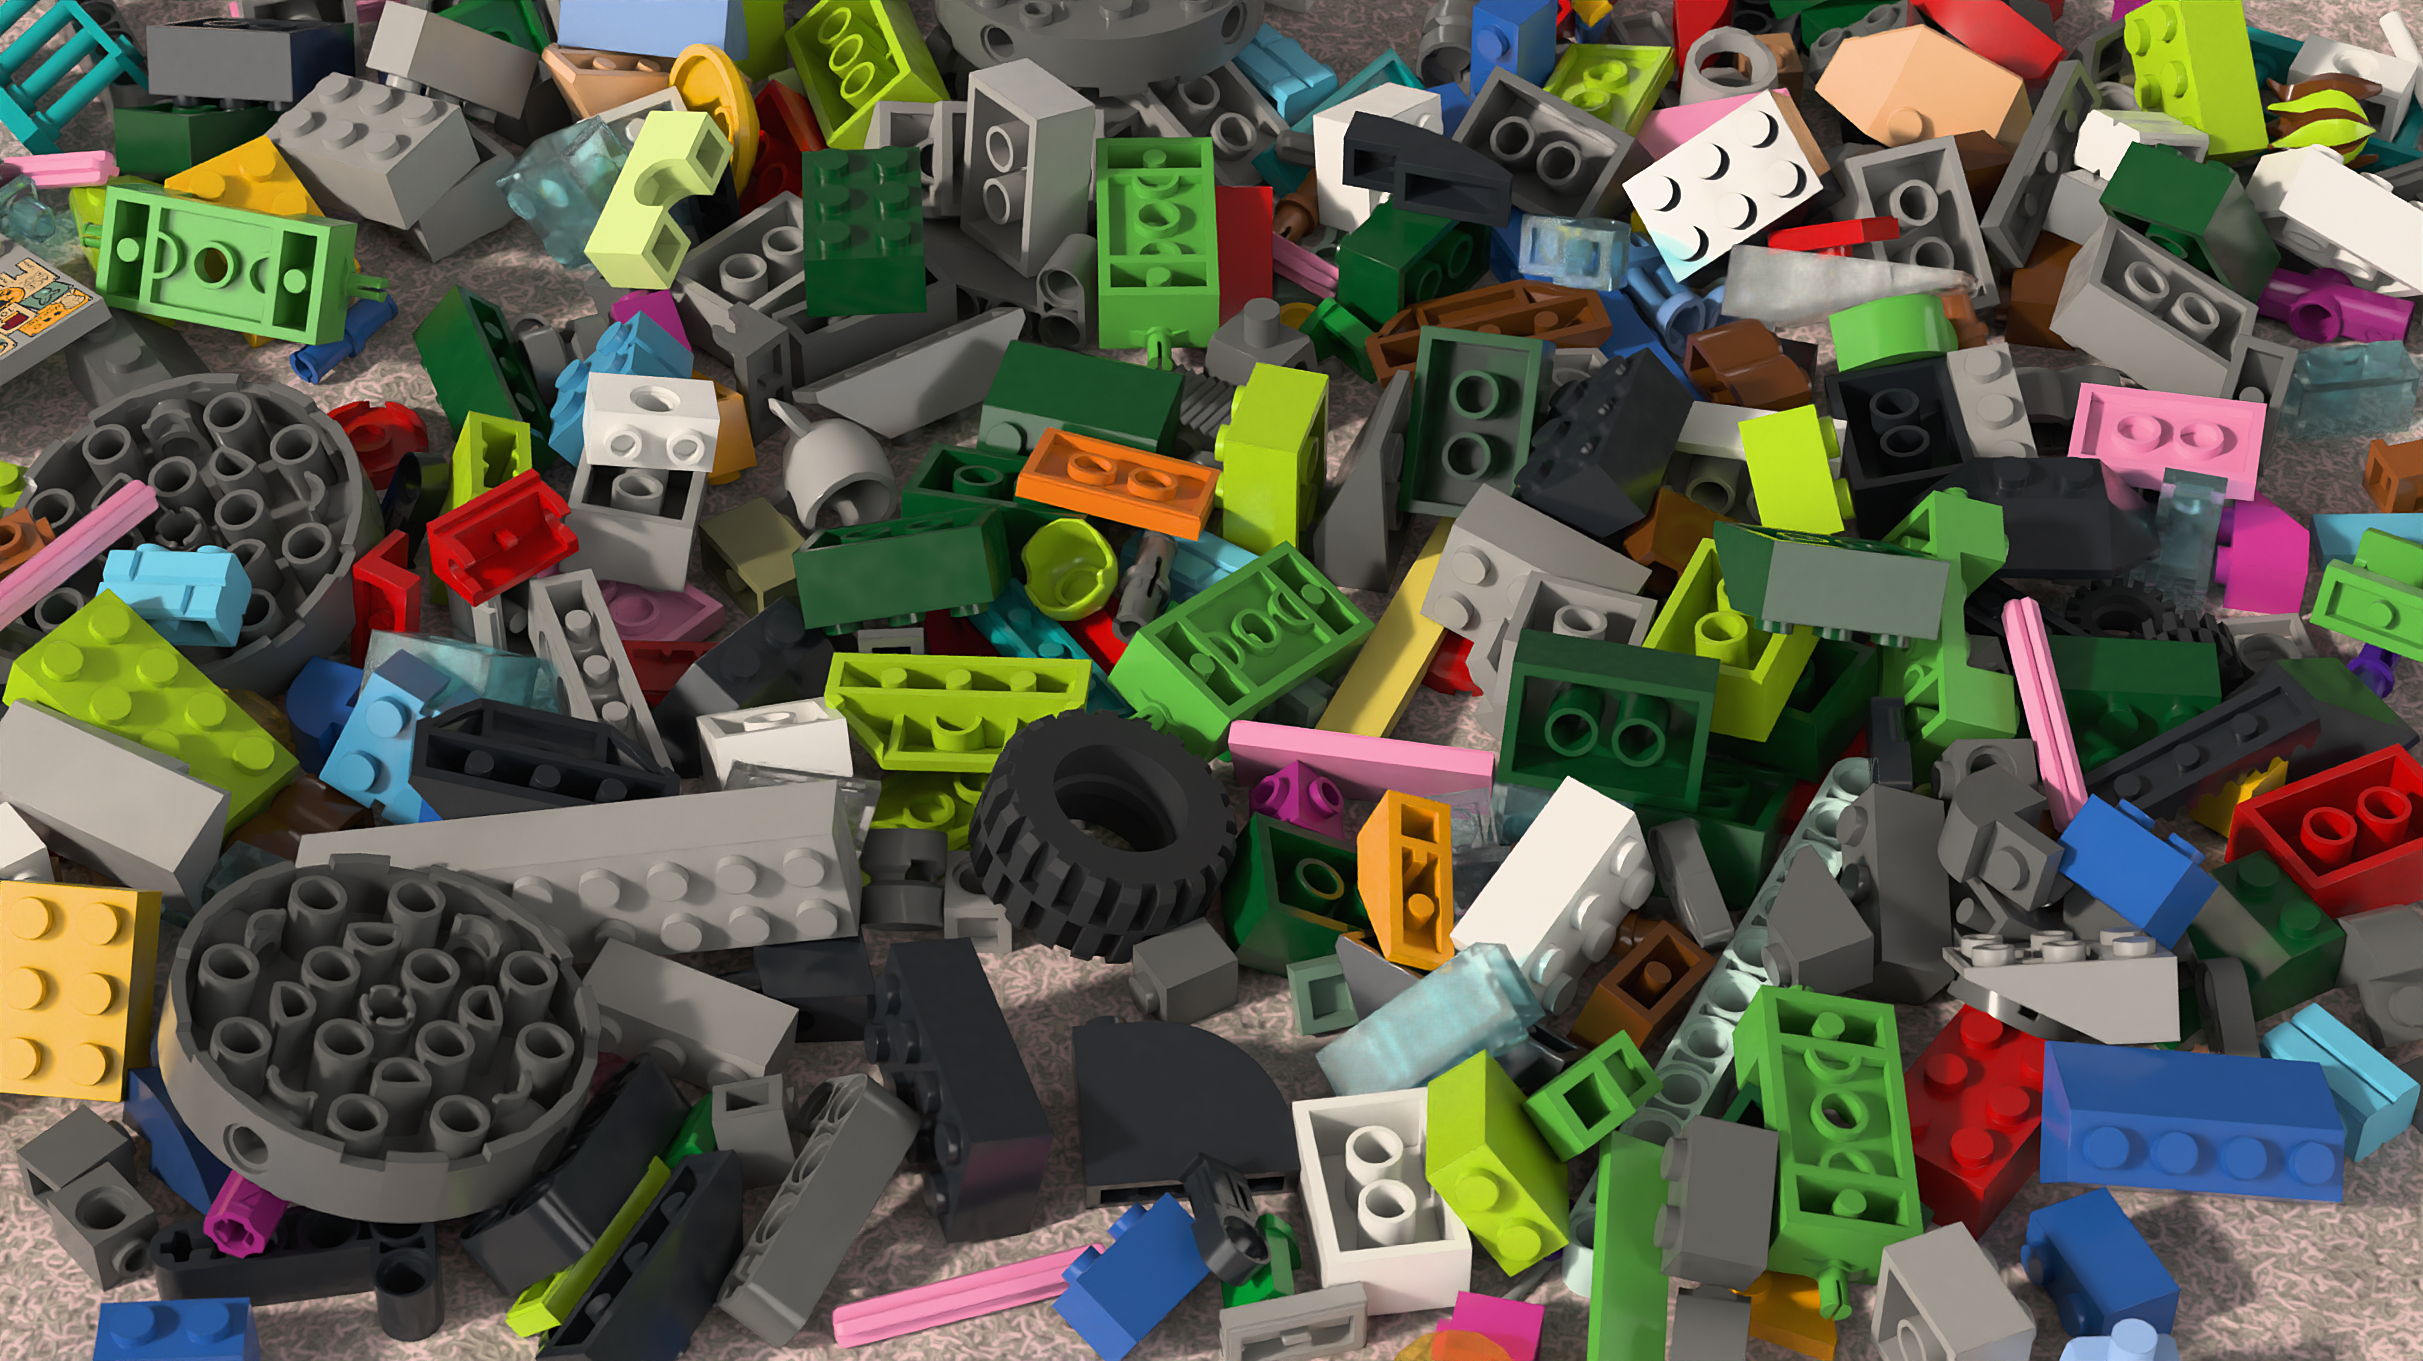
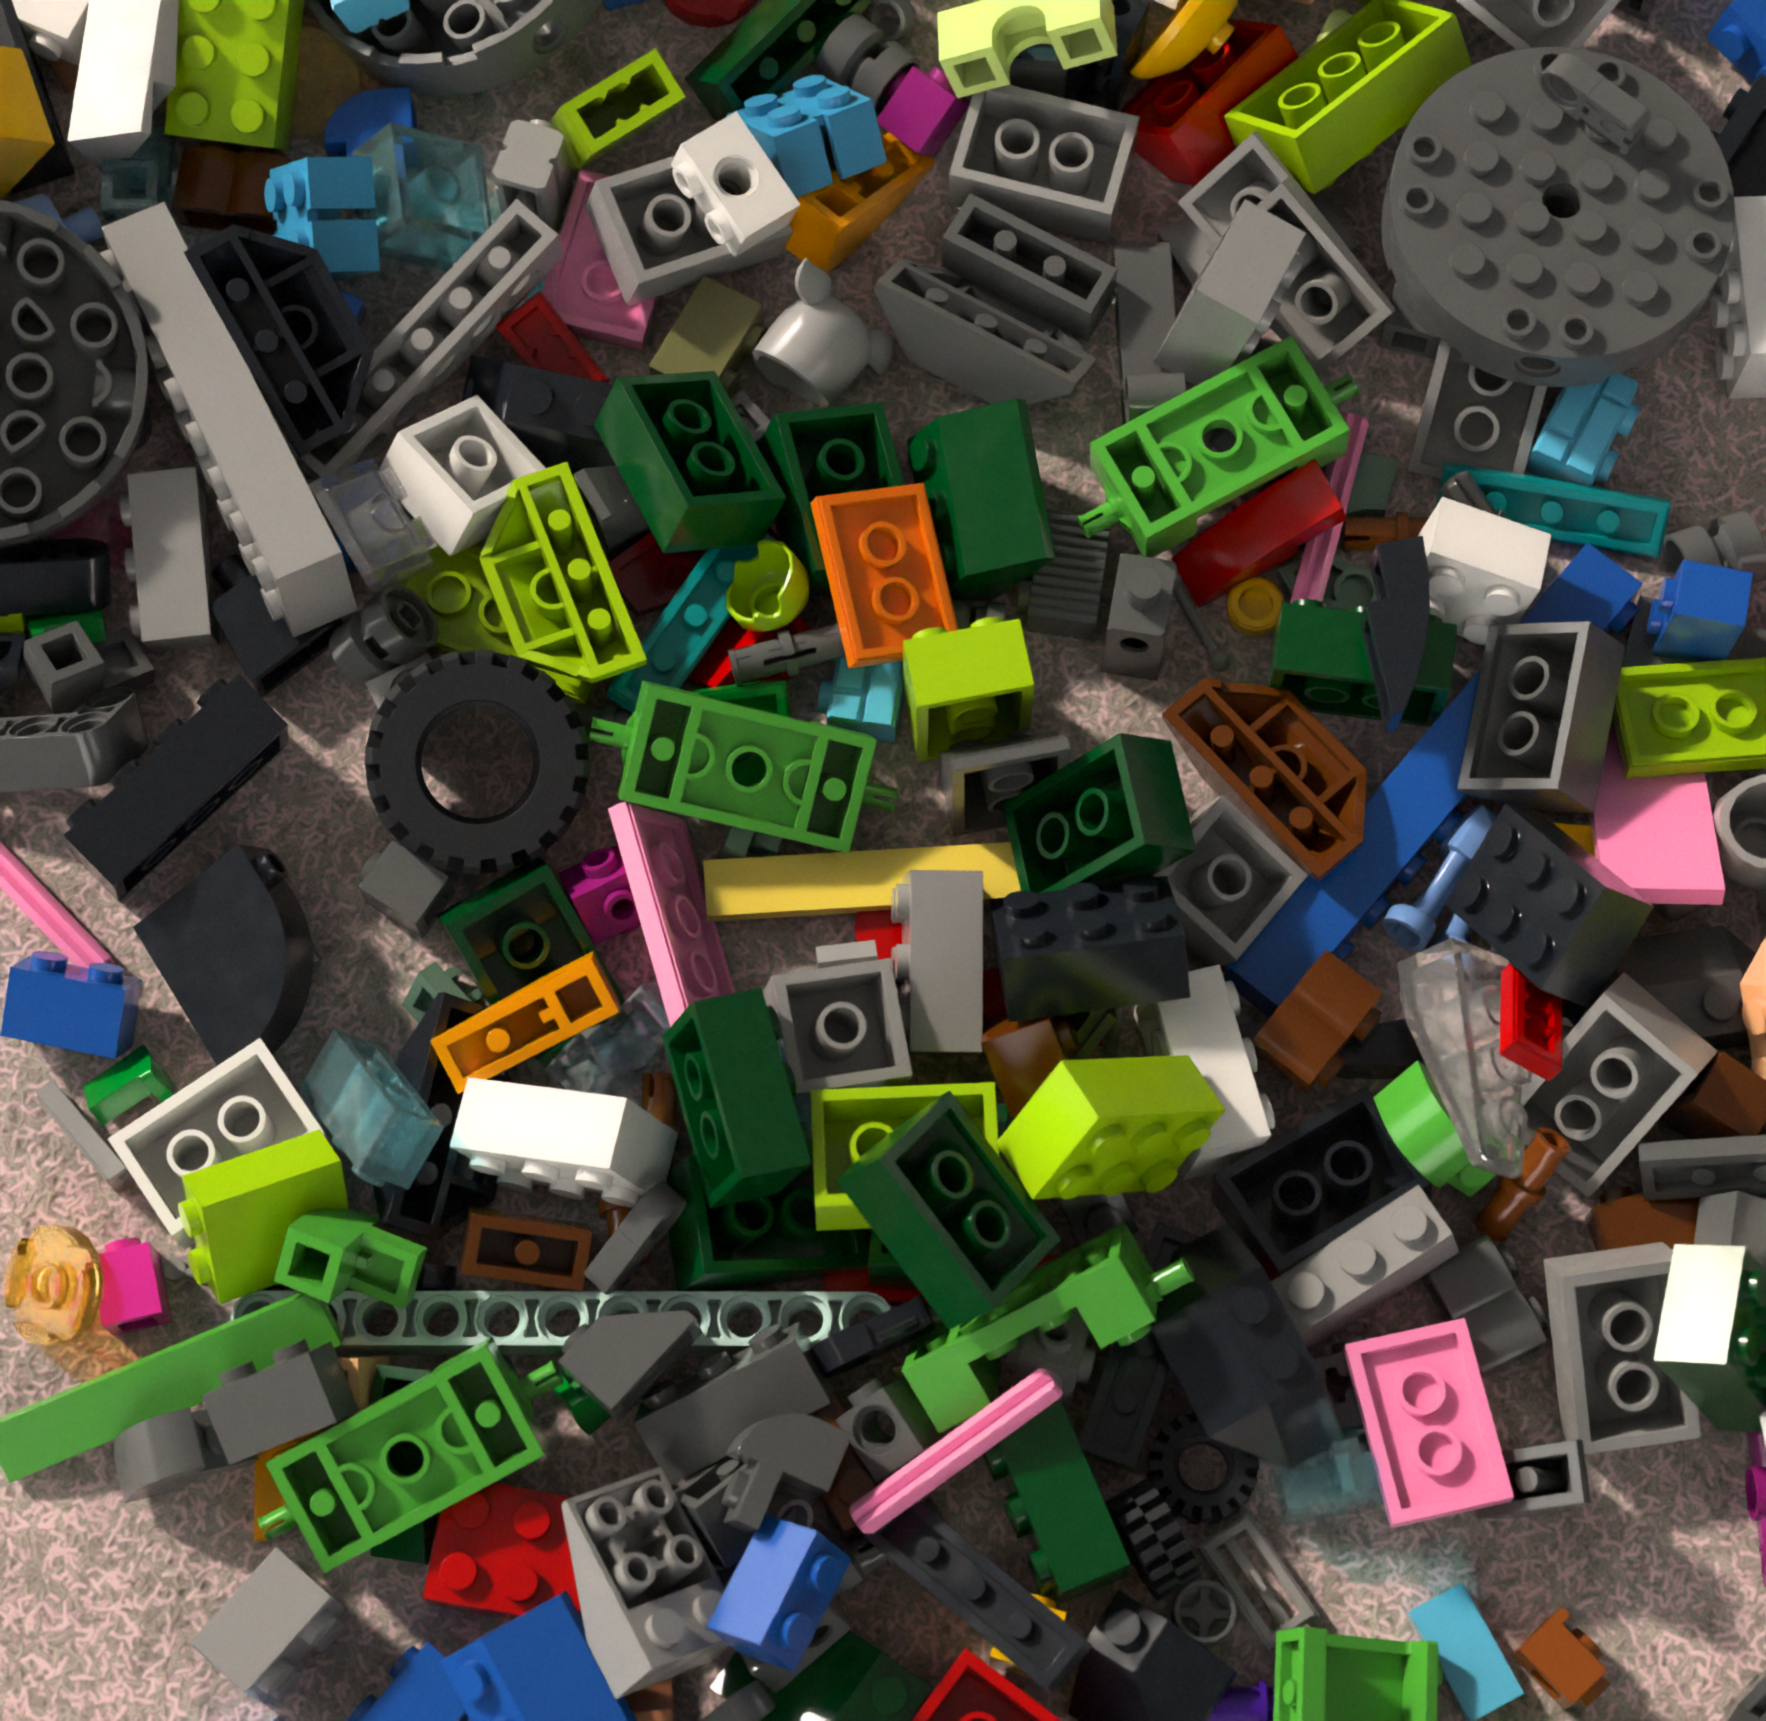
camera: 65 degrees right, 30 degrees up
(384, 593) = (491, 96): red panel -> none
(415, 497) = (610, 55): black piece -> none
(501, 538) = (527, 157): red hinge -> none
(760, 366) = (904, 219): dark grey hinge -> none
(863, 232) = (1083, 211): dark green brick -> none
(1225, 1220) = (136, 1042): black piece -> none
(1340, 335) = (1243, 649): green tile -> none
(1576, 250) = (1398, 810): clear light blue brick -> none
(2263, 559) = (1364, 1559): dark pink slope -> none
(2351, 391) = (1669, 1545): clear light blue slope -> none

